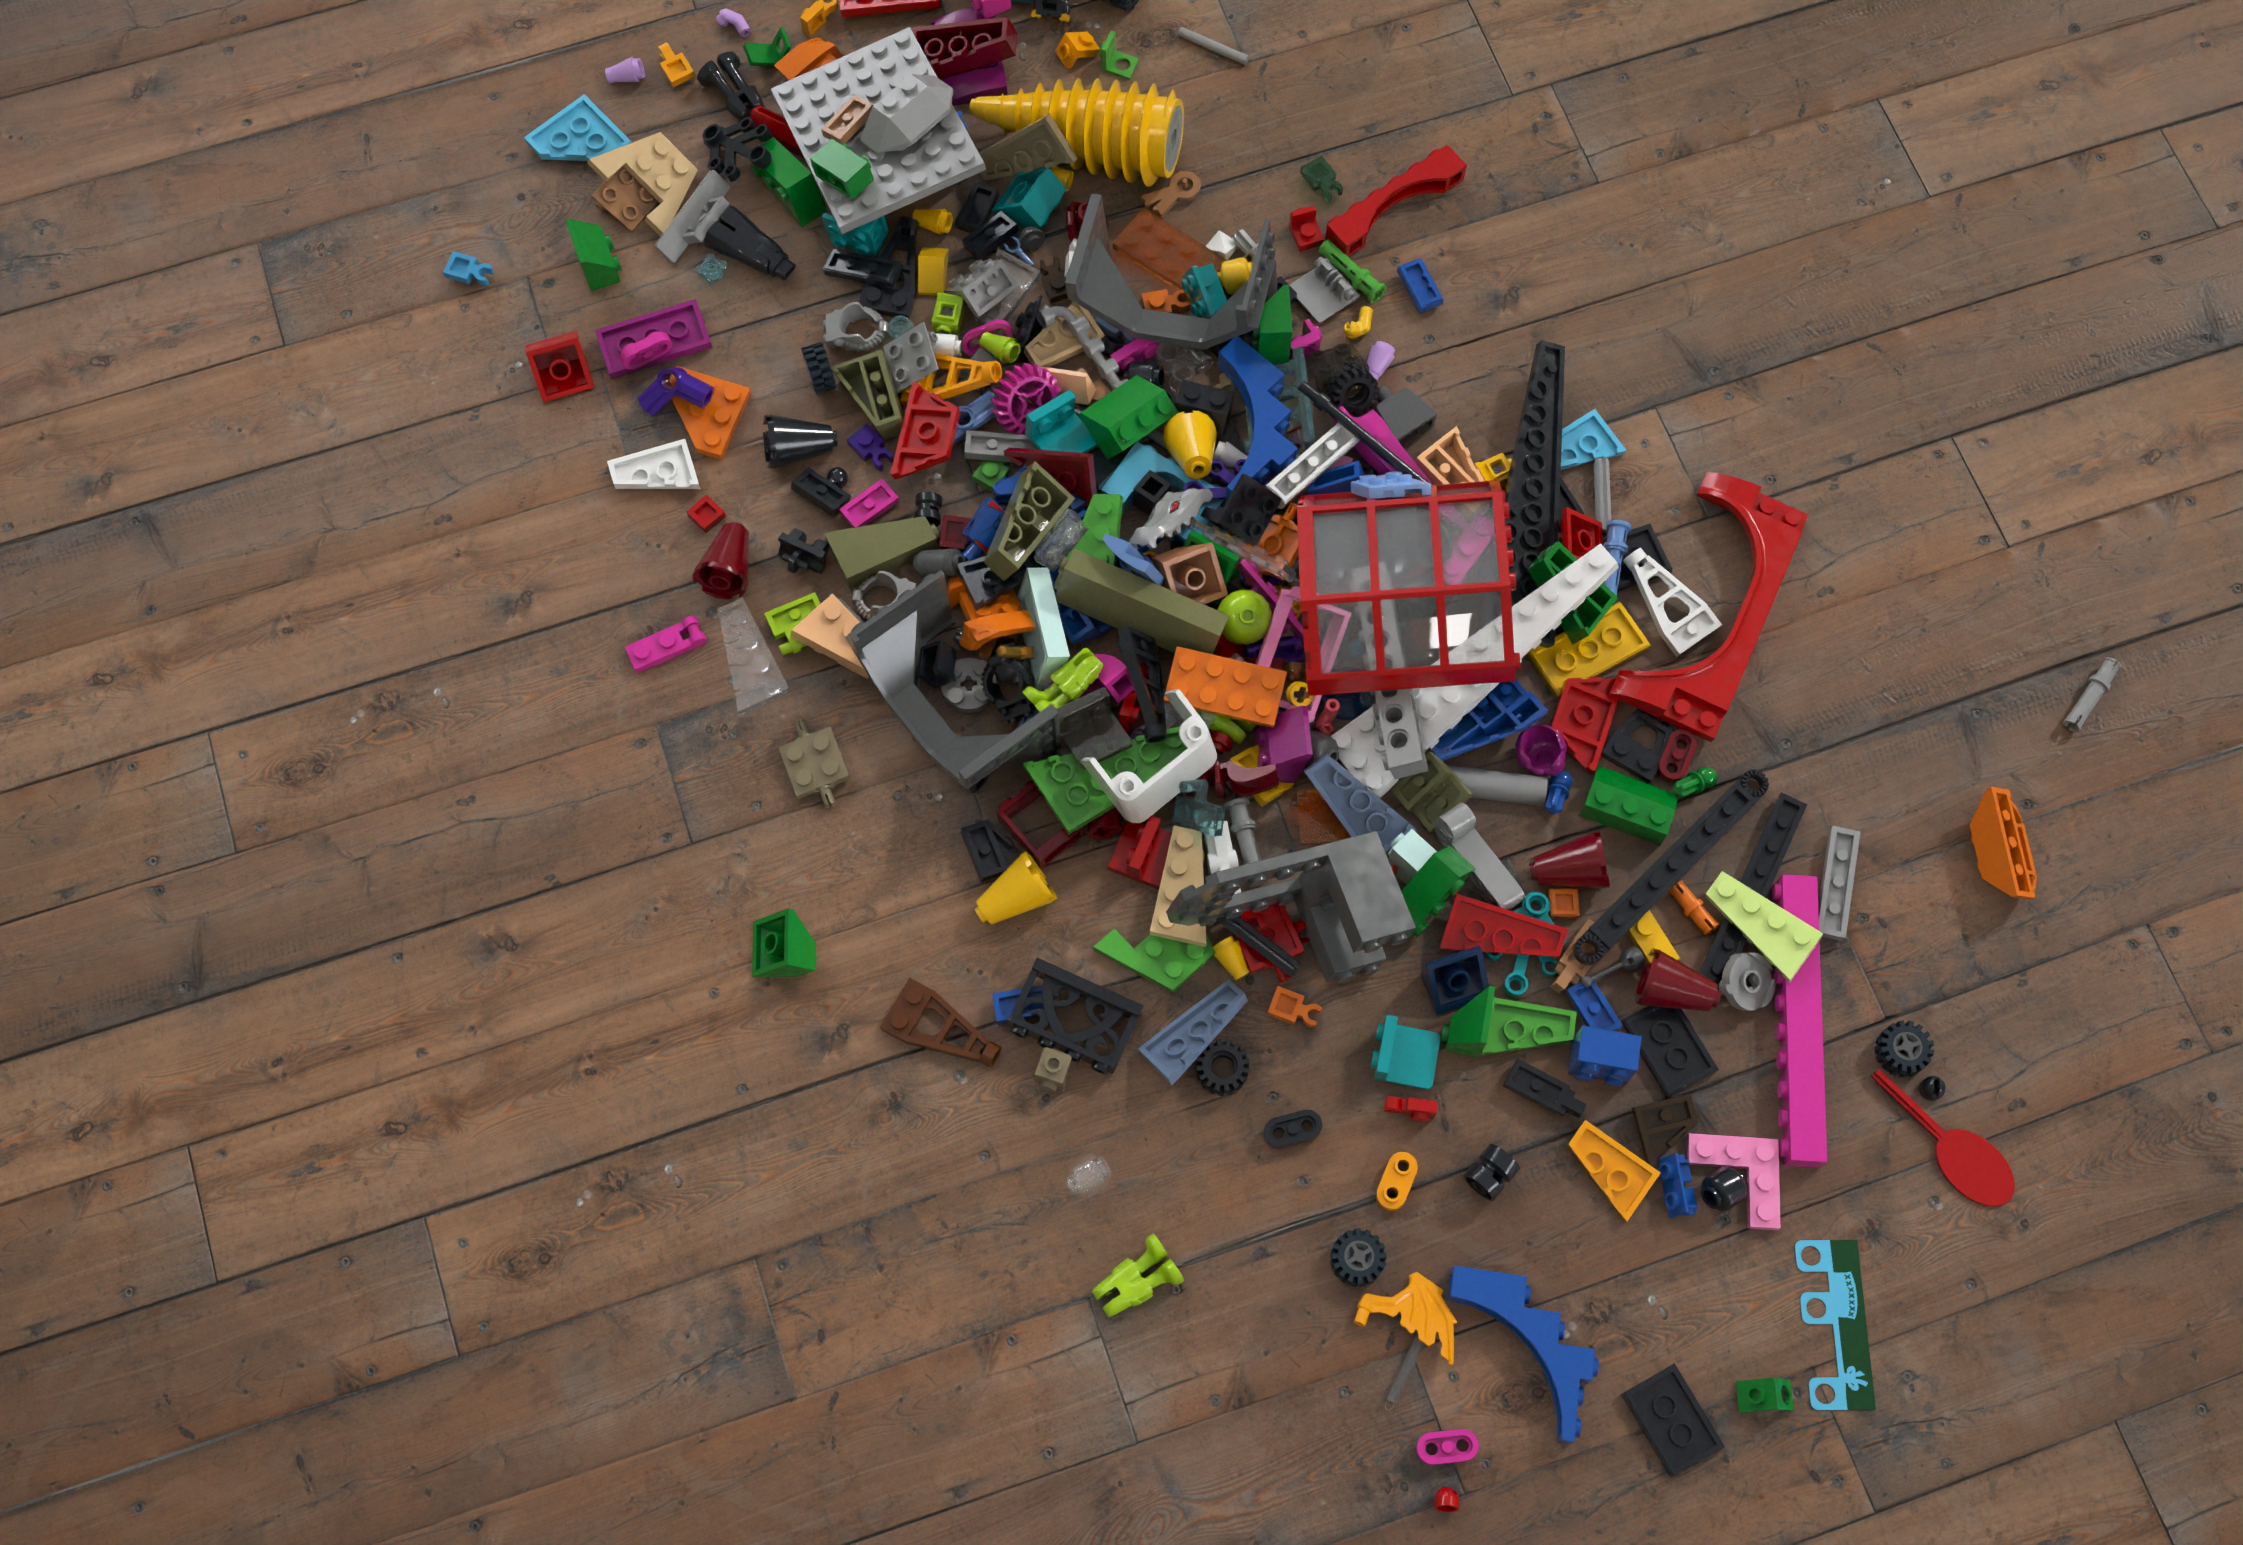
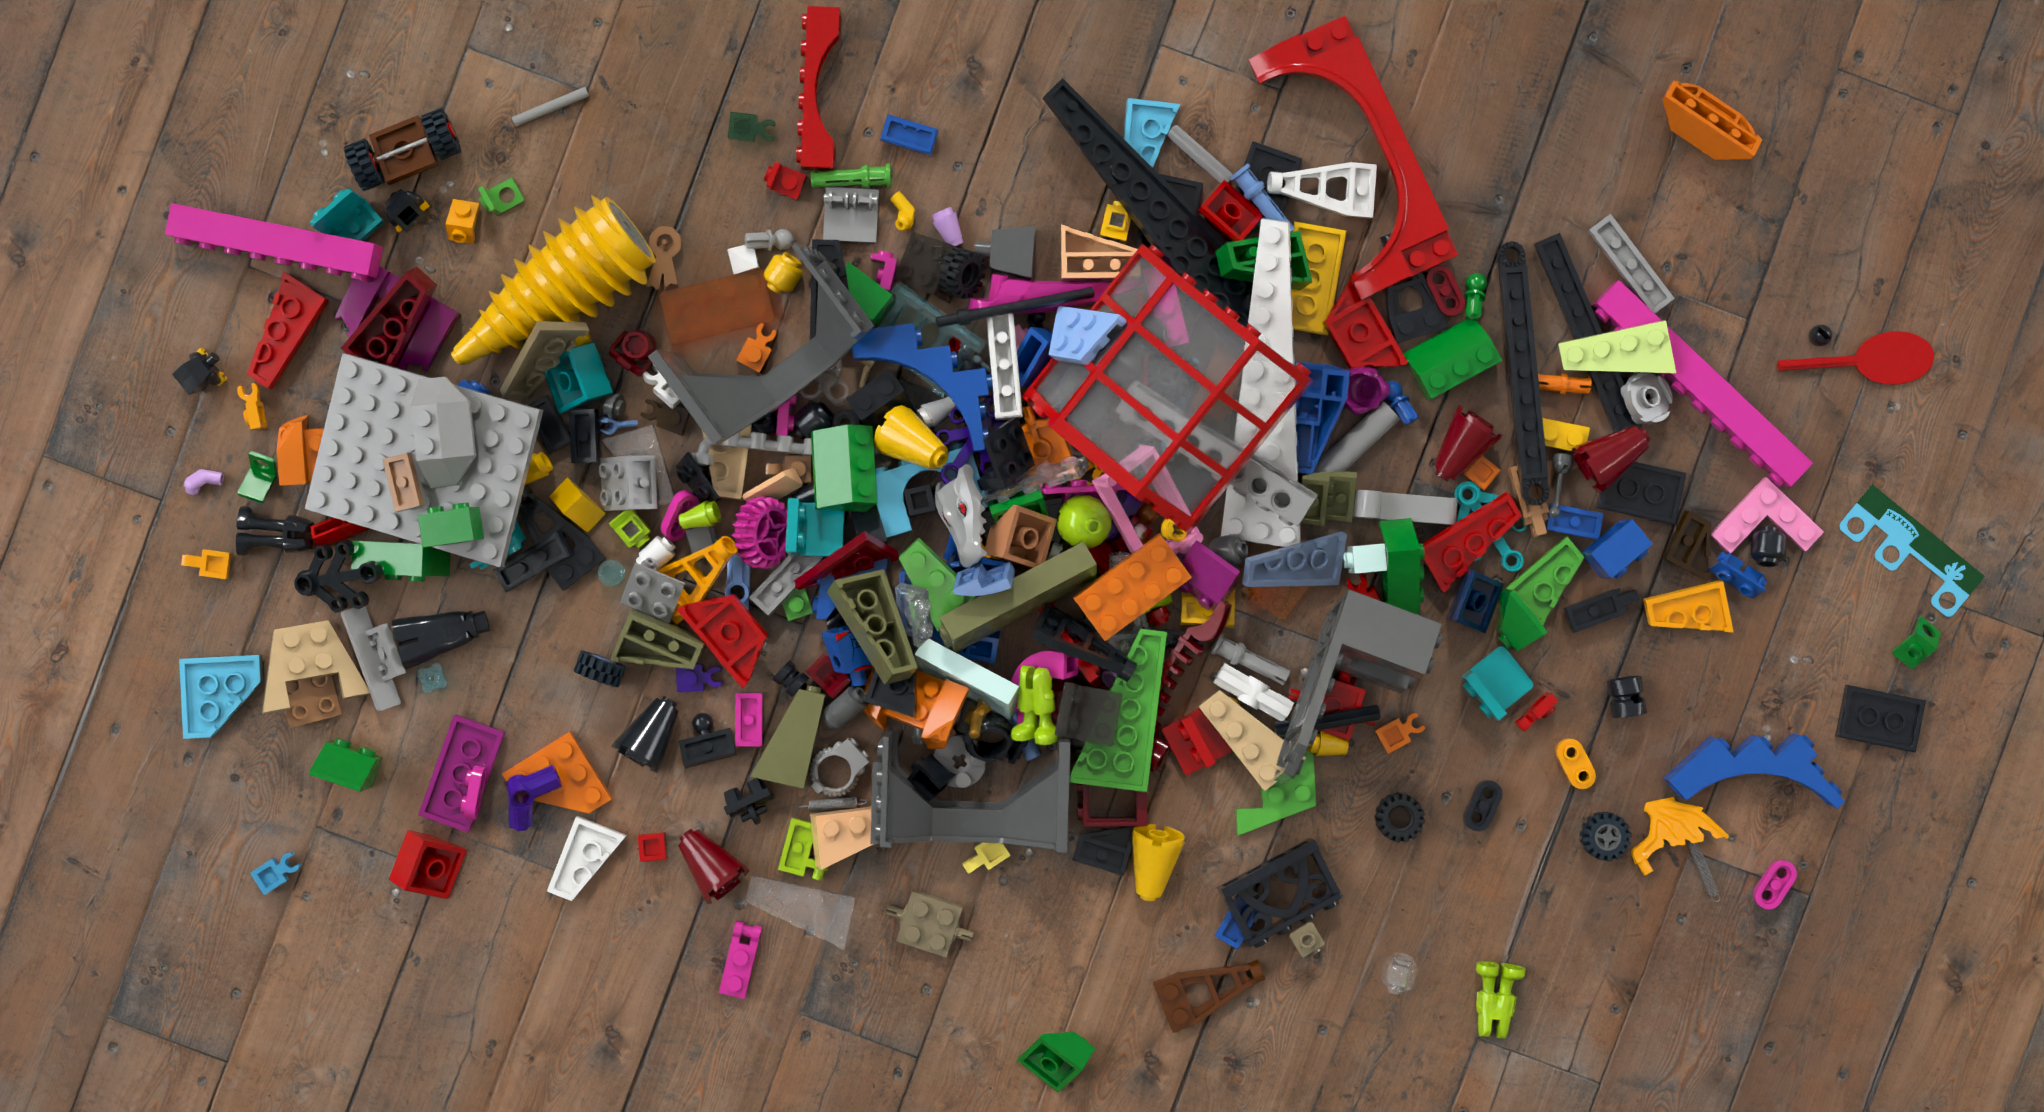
camera: 45 degrees left, 20 degrees up
(626, 71) = (182, 606): lavender cone -> none
(839, 320) = (570, 624): light grey piece -> none
(912, 763) = (987, 854): none -> light yellow plate
(1140, 800) = (1168, 657): white windscreen -> none
(1188, 1036) = (1359, 822): sand blue wing -> none
(1196, 812) = (1204, 683): clear light blue plate -> none
(1204, 290) = (781, 311): teal bracket -> none
(1327, 717) = (1208, 526): coral arm -> none
(1446, 1500) = (1806, 913): red hinge -> none
(1912, 1042) = (1789, 329): black wheel -> none

